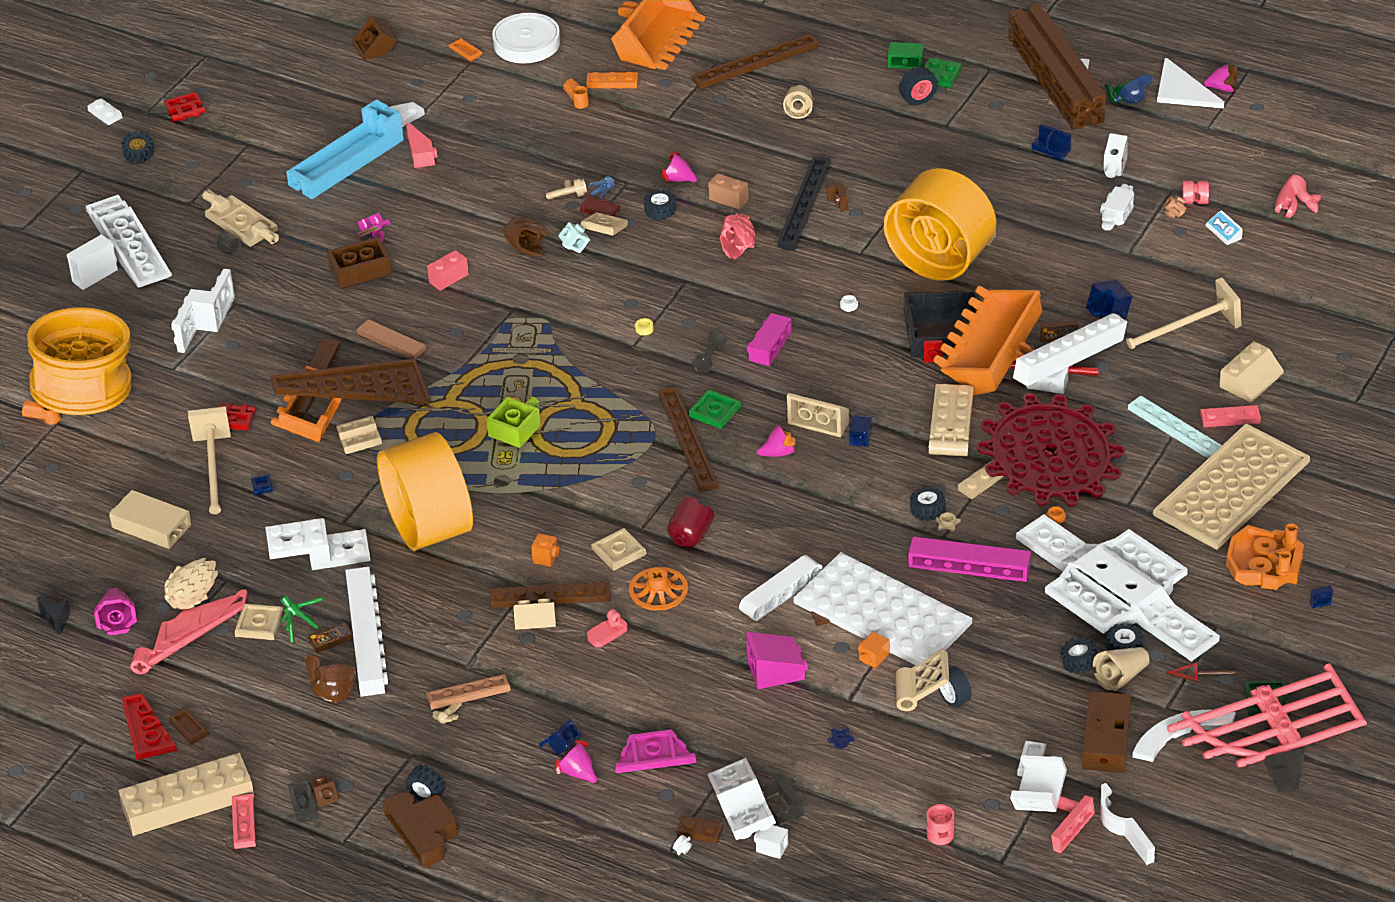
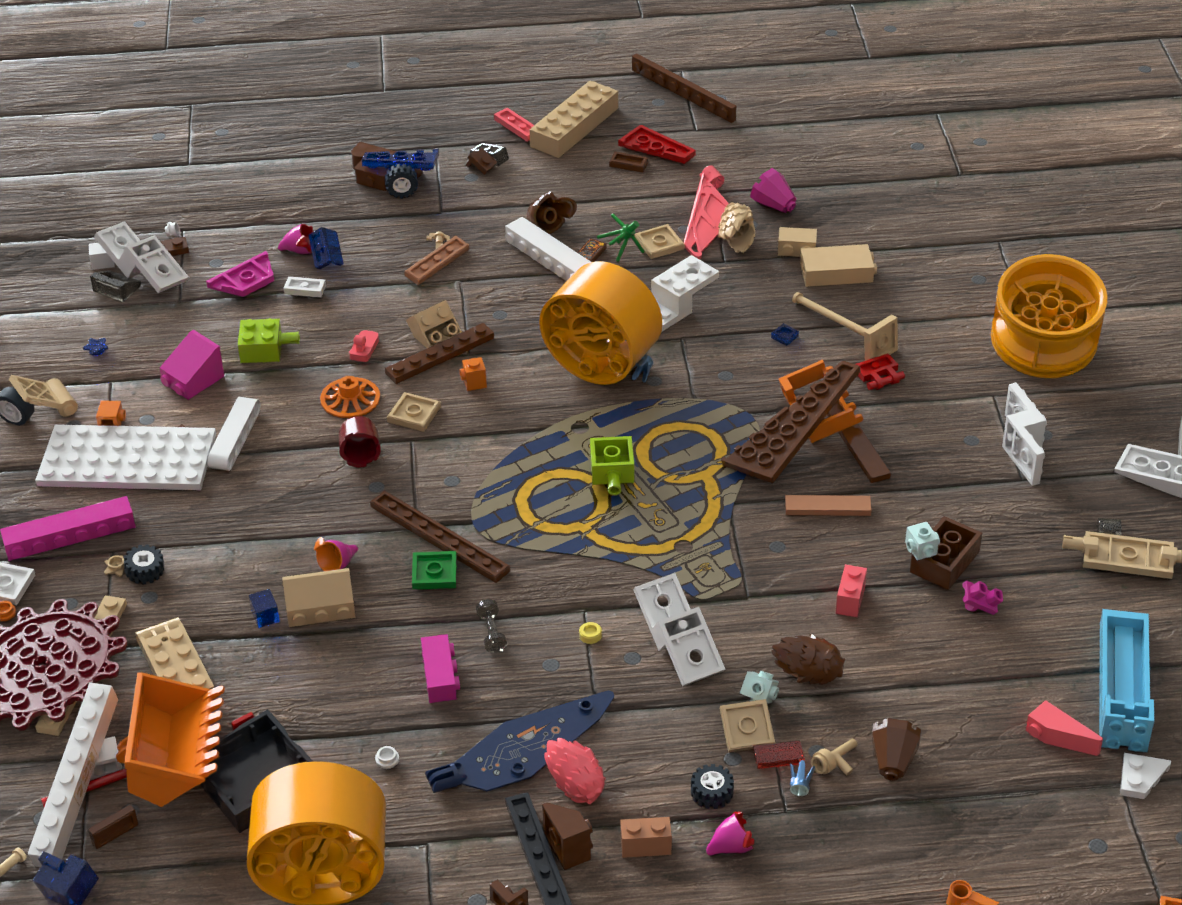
camera: 145 degrees right, 0 degrees up
(44, 793) = (684, 88): none -> reddish brown plate
(55, 614) = (820, 176): black slope -> none
(154, 556) = (793, 239): none -> tan brick
(359, 435) = (749, 405): tan slope -> none
(381, 246) = (922, 540): none -> light aqua brick
(404, 793) = (416, 160): none -> clear blue wing
(529, 172) = (894, 746): none -> reddish brown cone
(590, 286) = (679, 629): none -> white bracket
(610, 713) = (304, 287): none -> white plate
(692, 665) = (262, 340): none -> lime brick
(757, 274) = (519, 745): none -> dark blue wing
(776, 201) = (567, 834): none -> reddish brown slope

